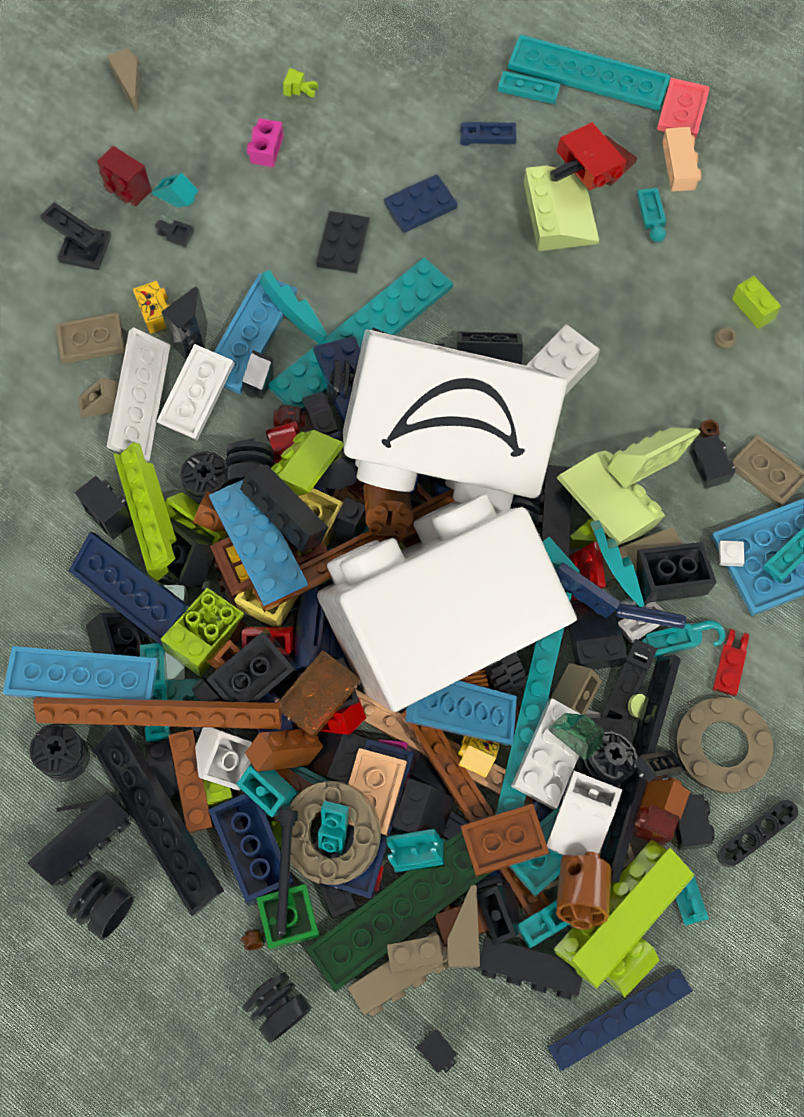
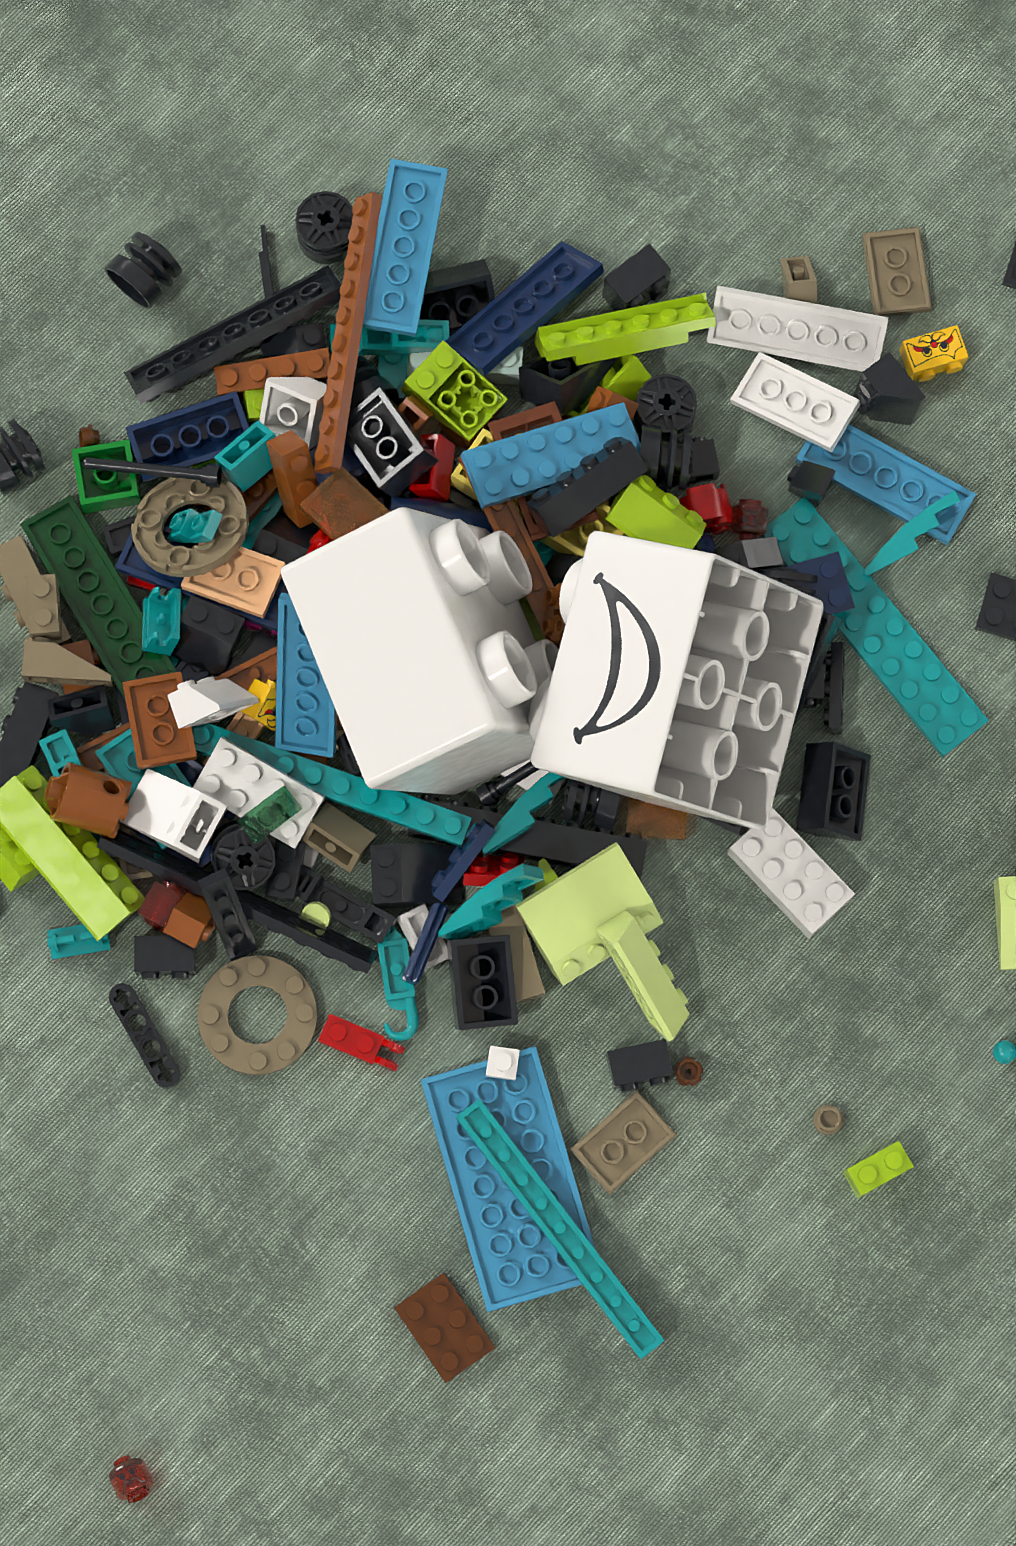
camera: 90 degrees right, 10 degrees up
(81, 839) = (220, 251): black slope -> none
(486, 795) = (208, 701): none -> white slope

